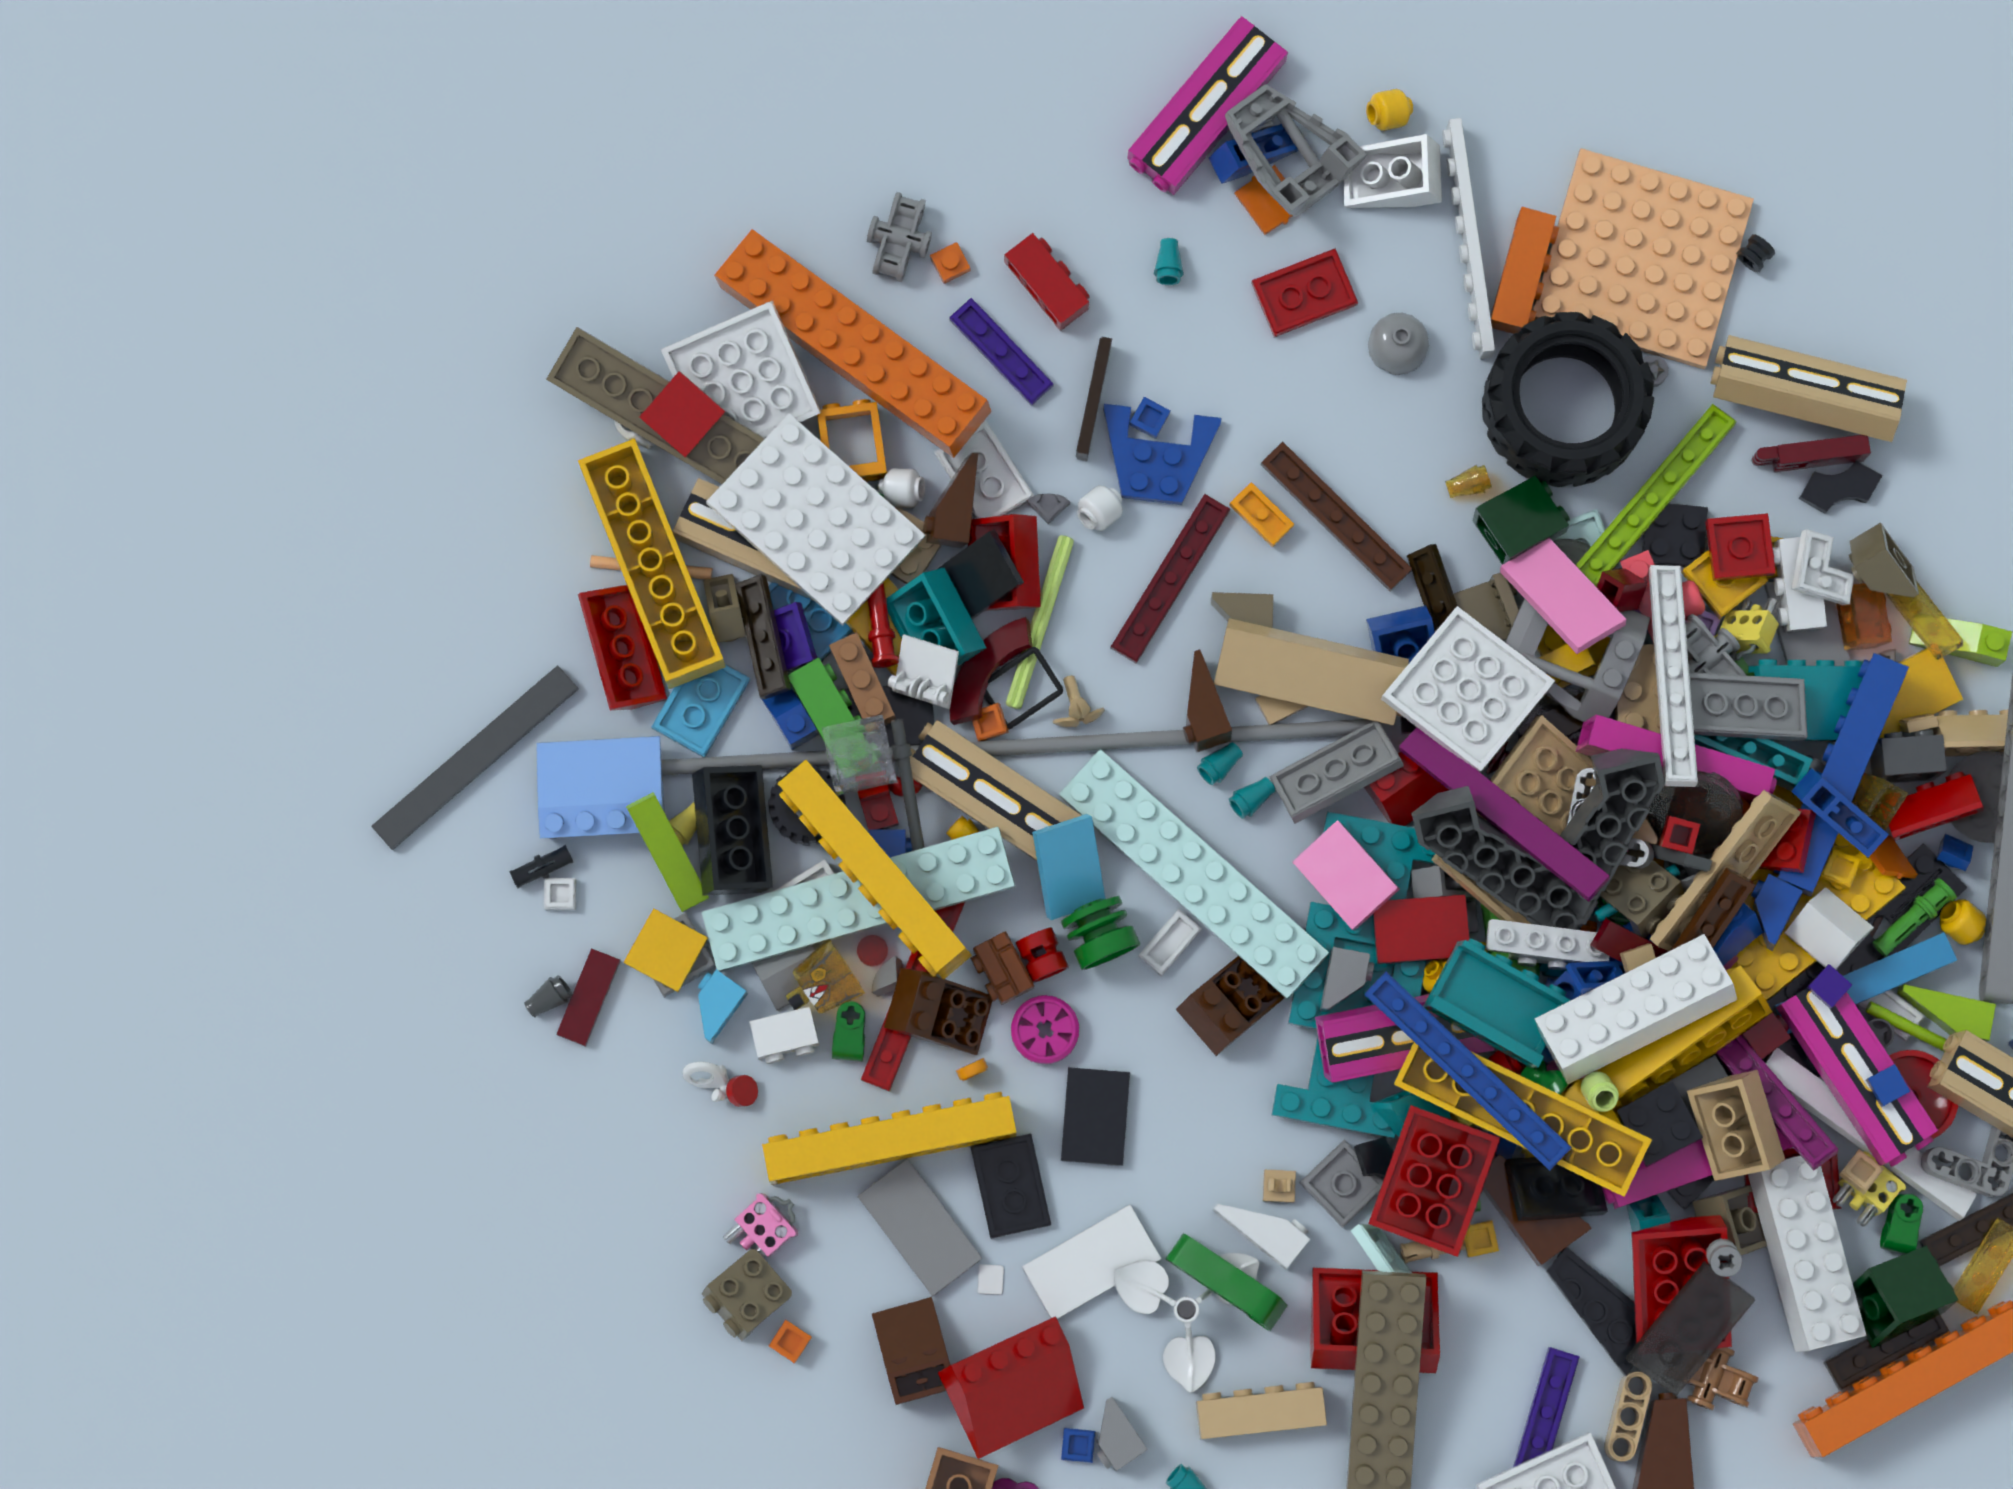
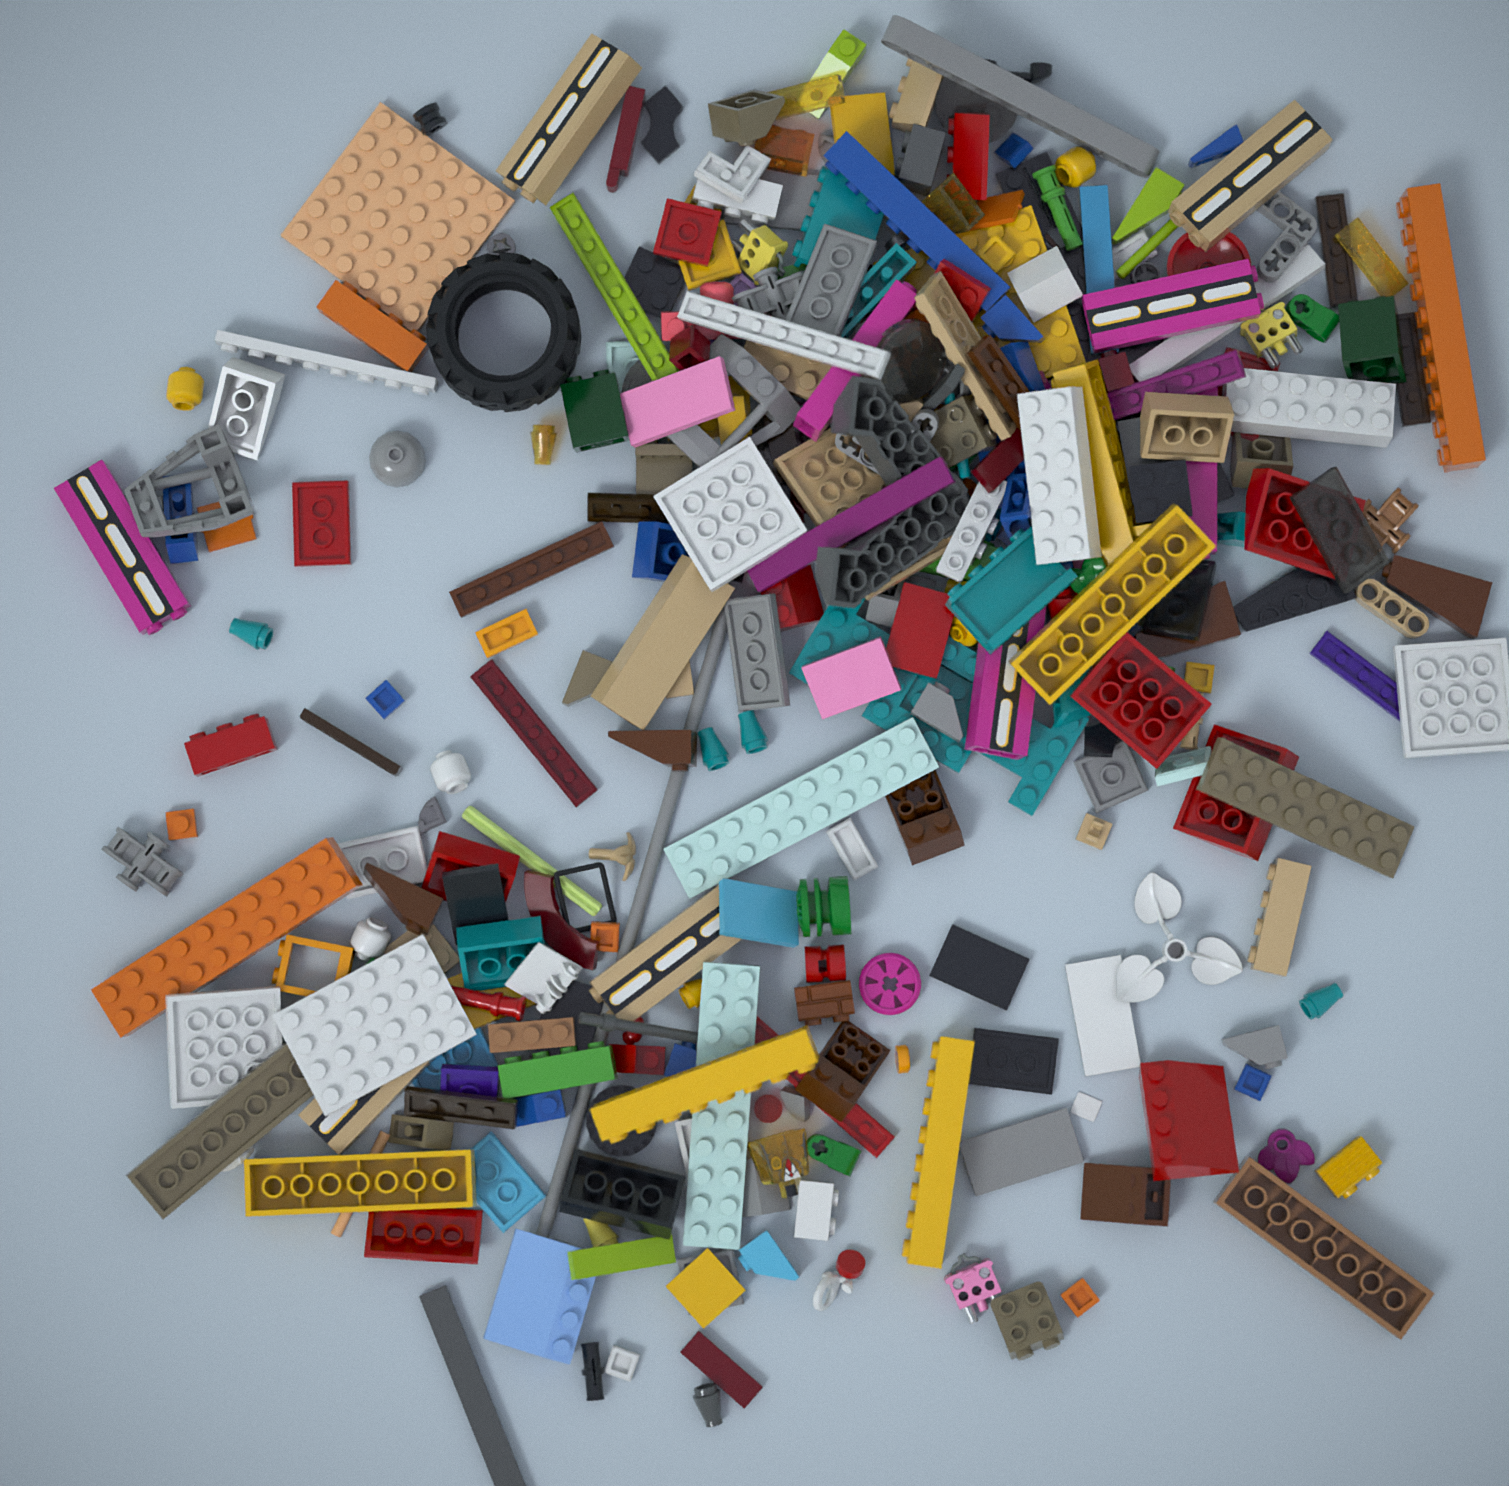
camera: 65 degrees left, 5 degrees up
(682, 414) = (238, 1109): red tile -> none
(859, 754) = (600, 1060): clear brick -> none
(1001, 351) = (278, 808): dark purple tile -> none
(1155, 468) = (431, 711): blue wing -> none
(1227, 1281) = (1160, 906): green beam -> none
(1271, 1234) = (1133, 853): white slope -> none
(1468, 1071) = (1062, 638): blue tile -> none
(1599, 1091) = (1118, 532): yellowish green brick -> none
(1637, 956) = (1014, 456): tan tile -> none
(1679, 834) = (924, 382): red brick -> none
(1719, 1251) = (1286, 480): light grey wheel -> none
(1829, 986) = (1094, 303): dark purple tile -> none
(1839, 812) = (951, 238): blue slope -> none
(1861, 1171) = (1257, 335): tan tile -> none
(1888, 1085) = (1196, 286): blue tile -> none
(1918, 723) = (893, 139): tan tile -> none

